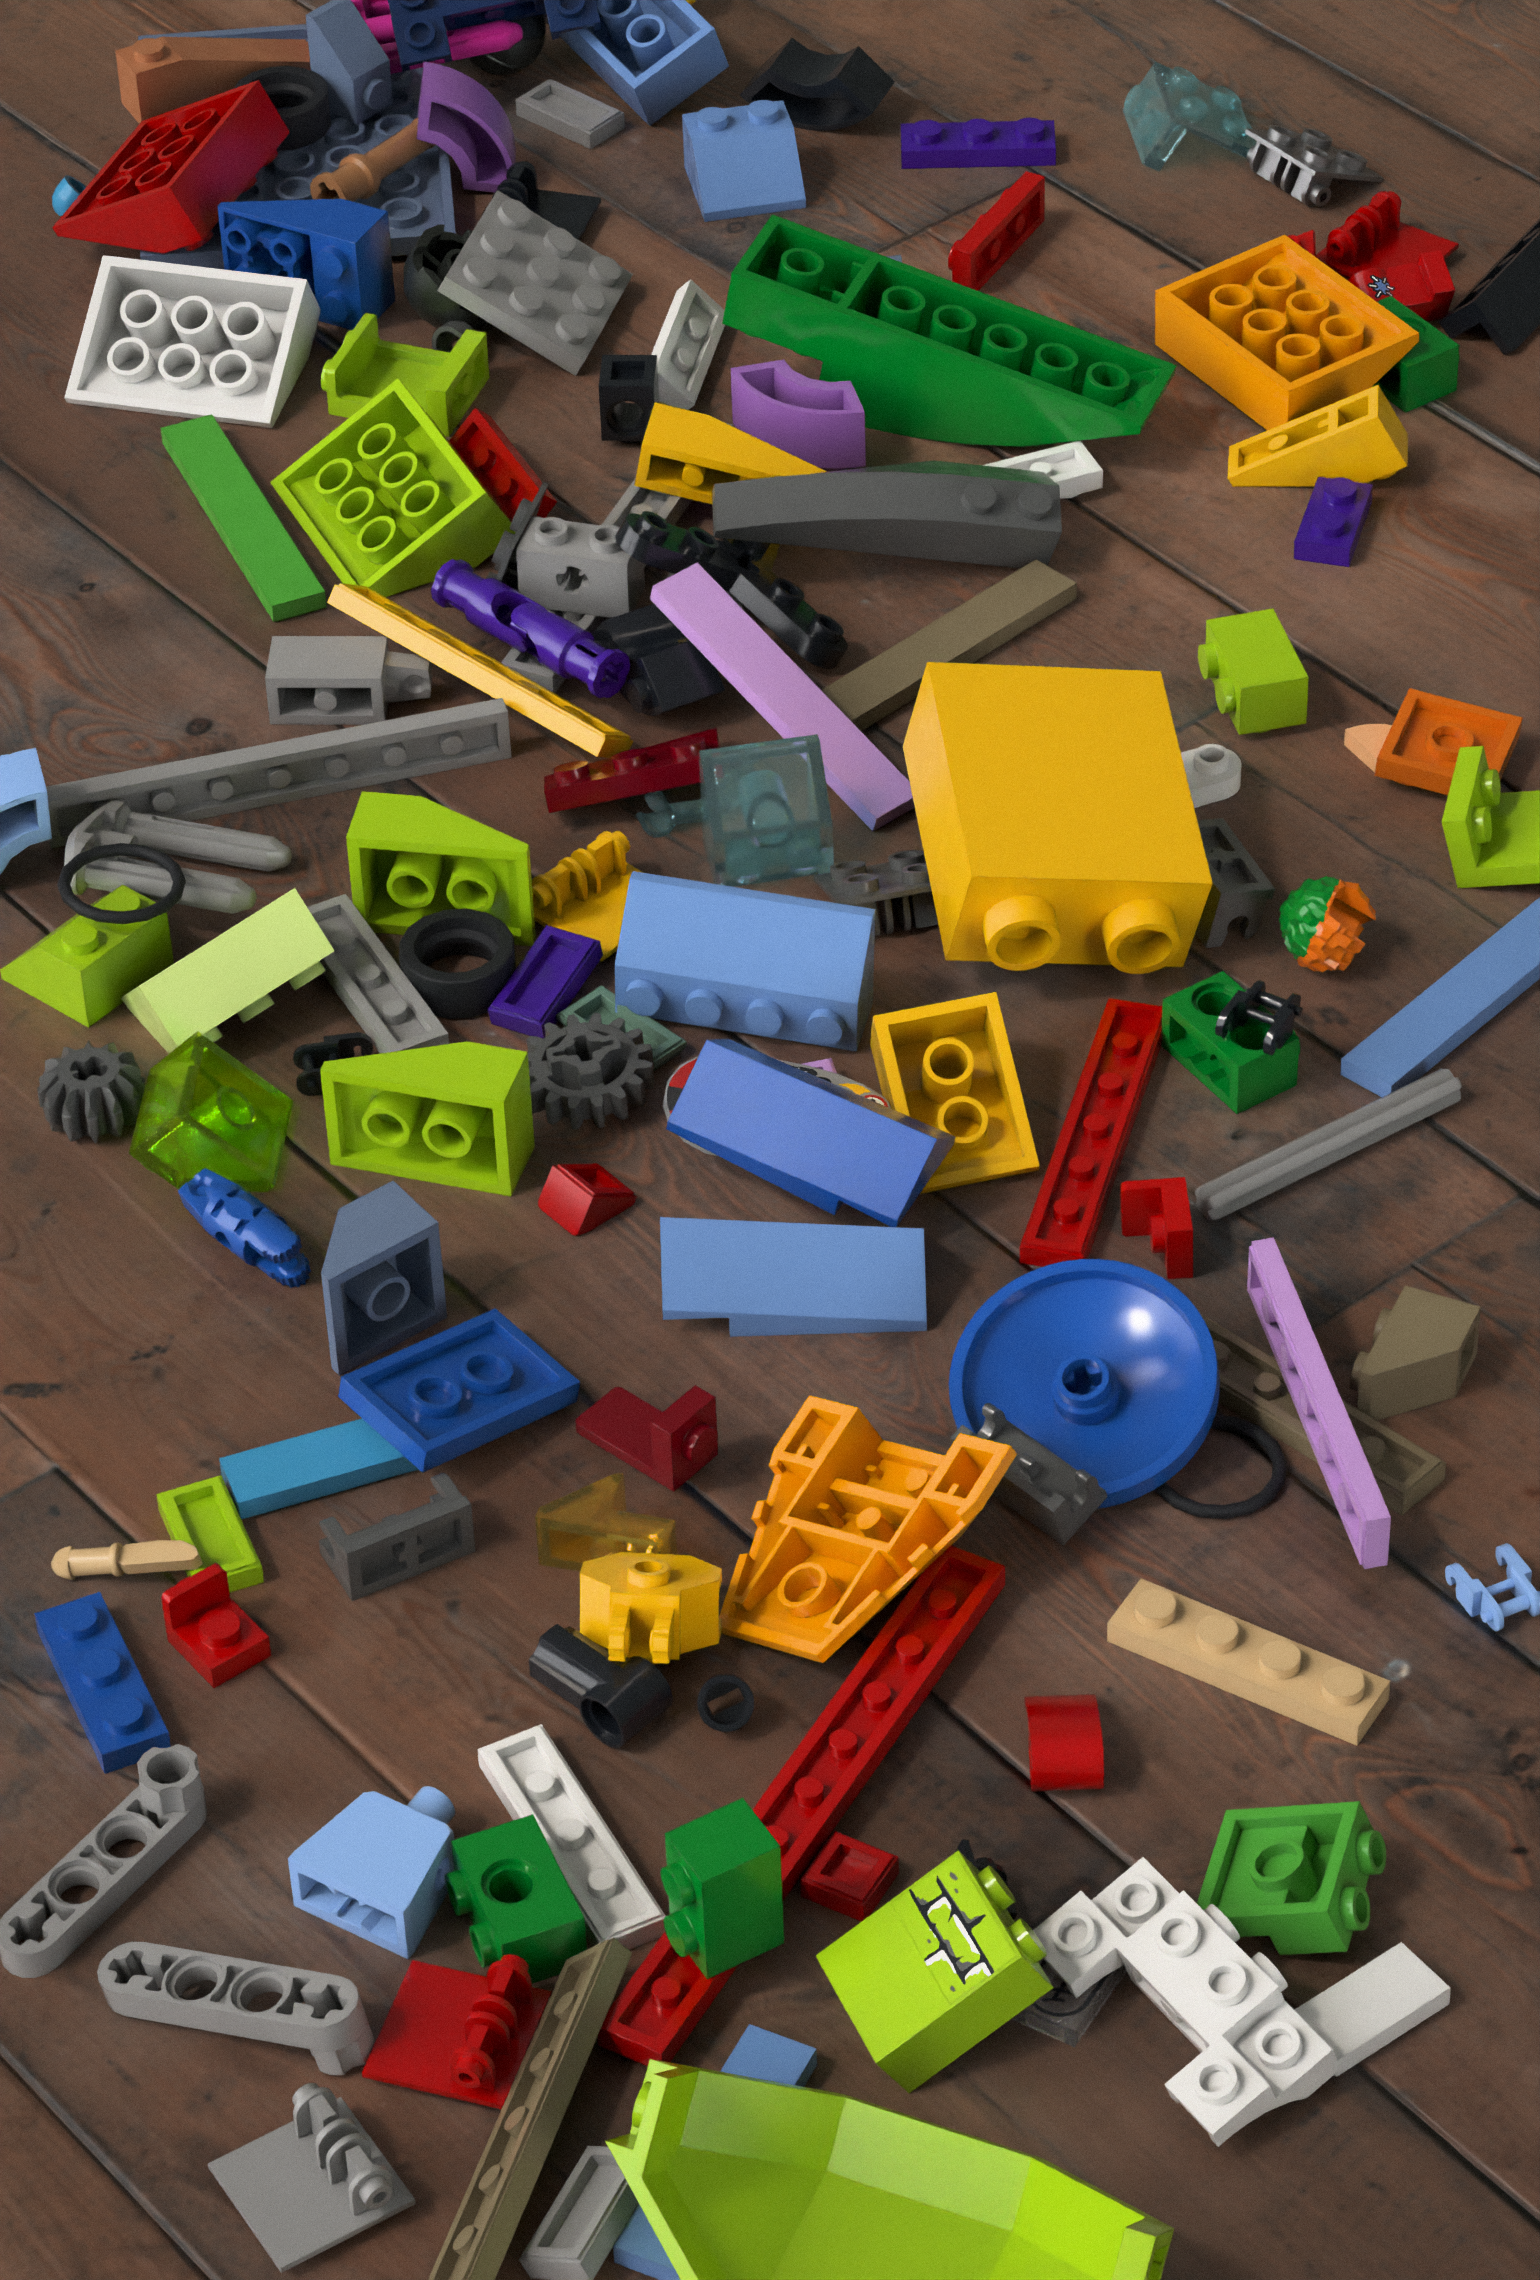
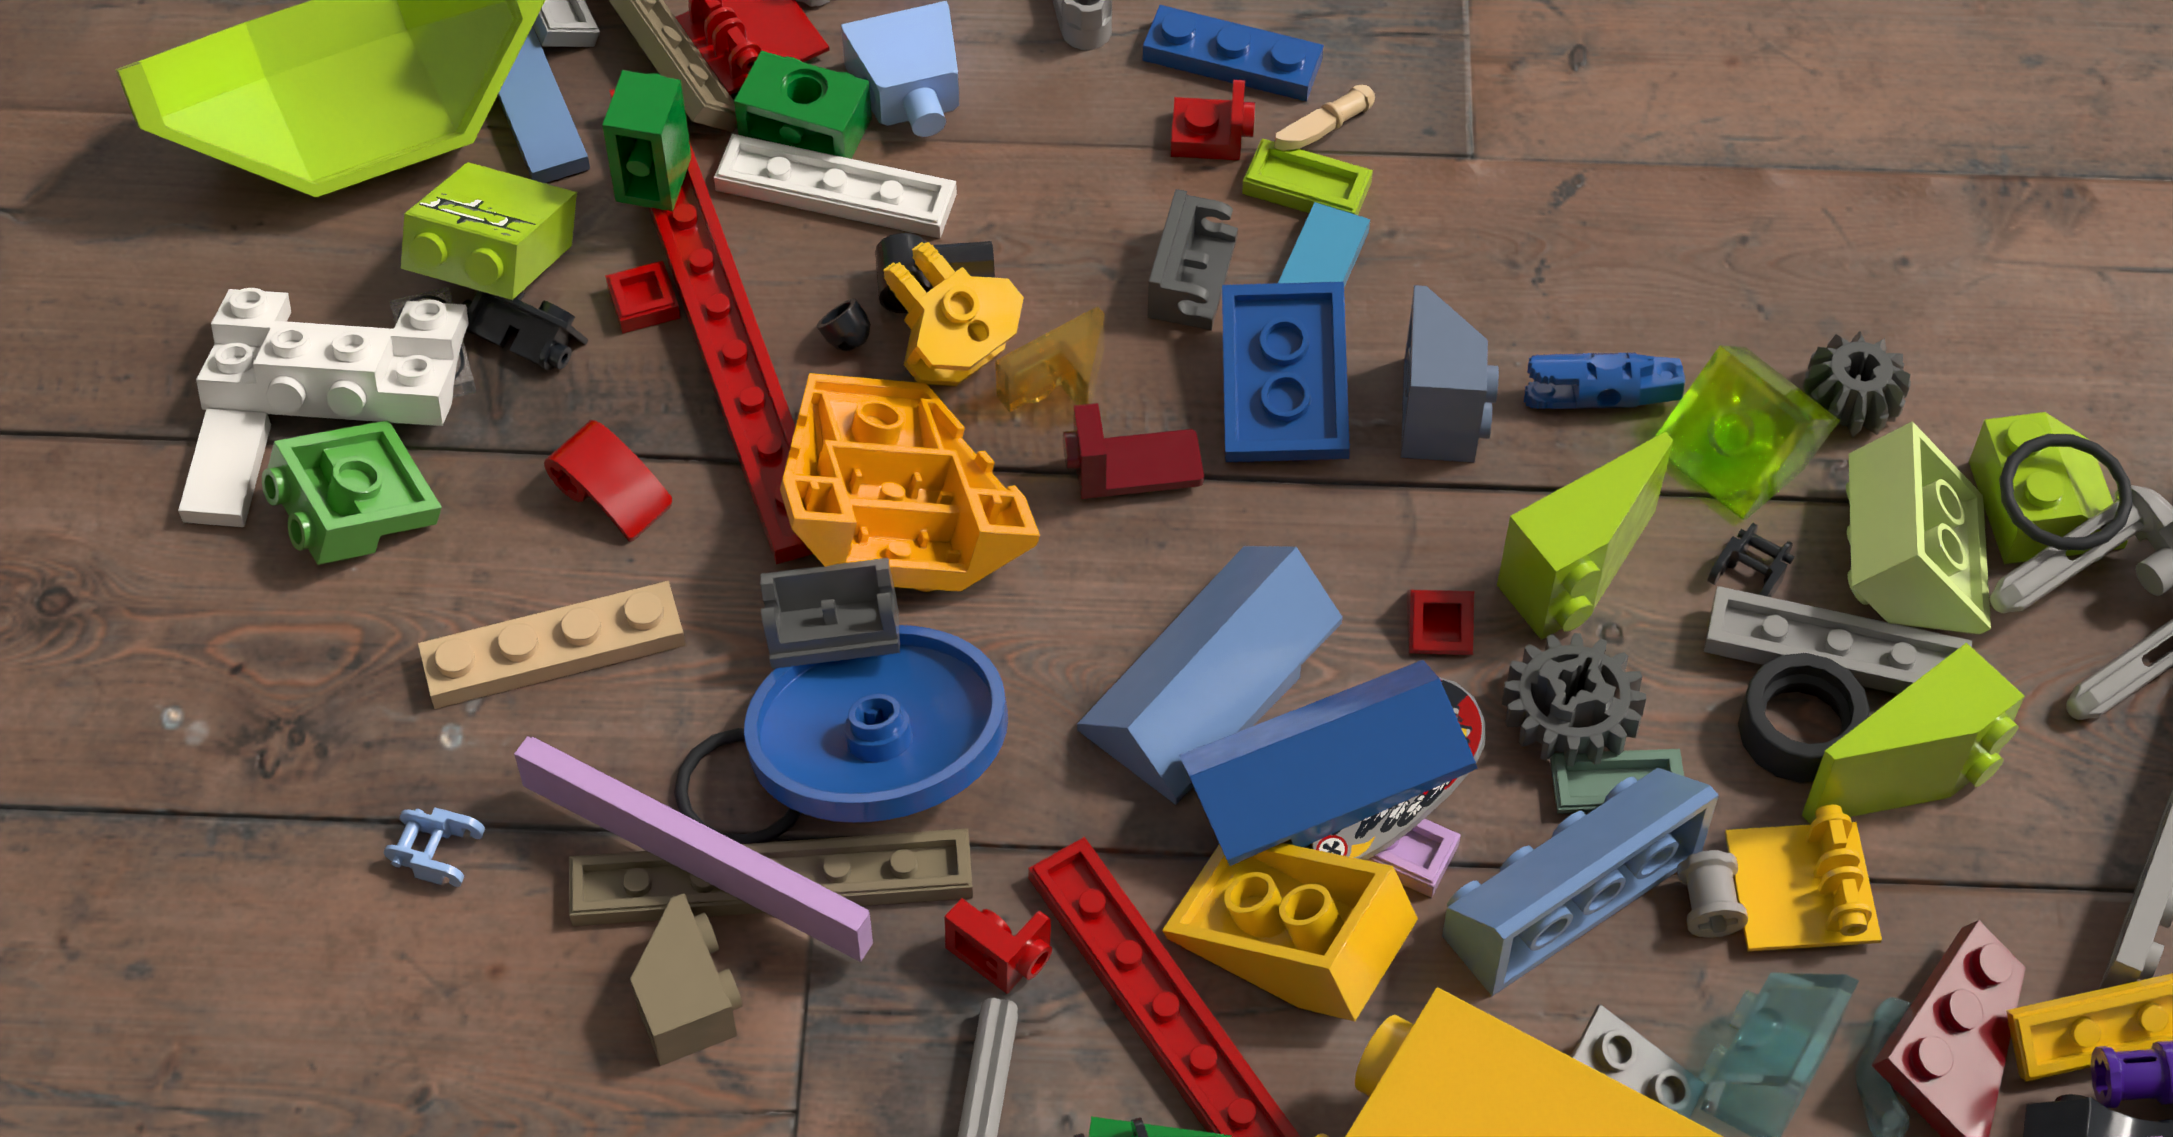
camera: 130 degrees right, 15 degrees up
(545, 981) = (1725, 758): dark purple tile -> none

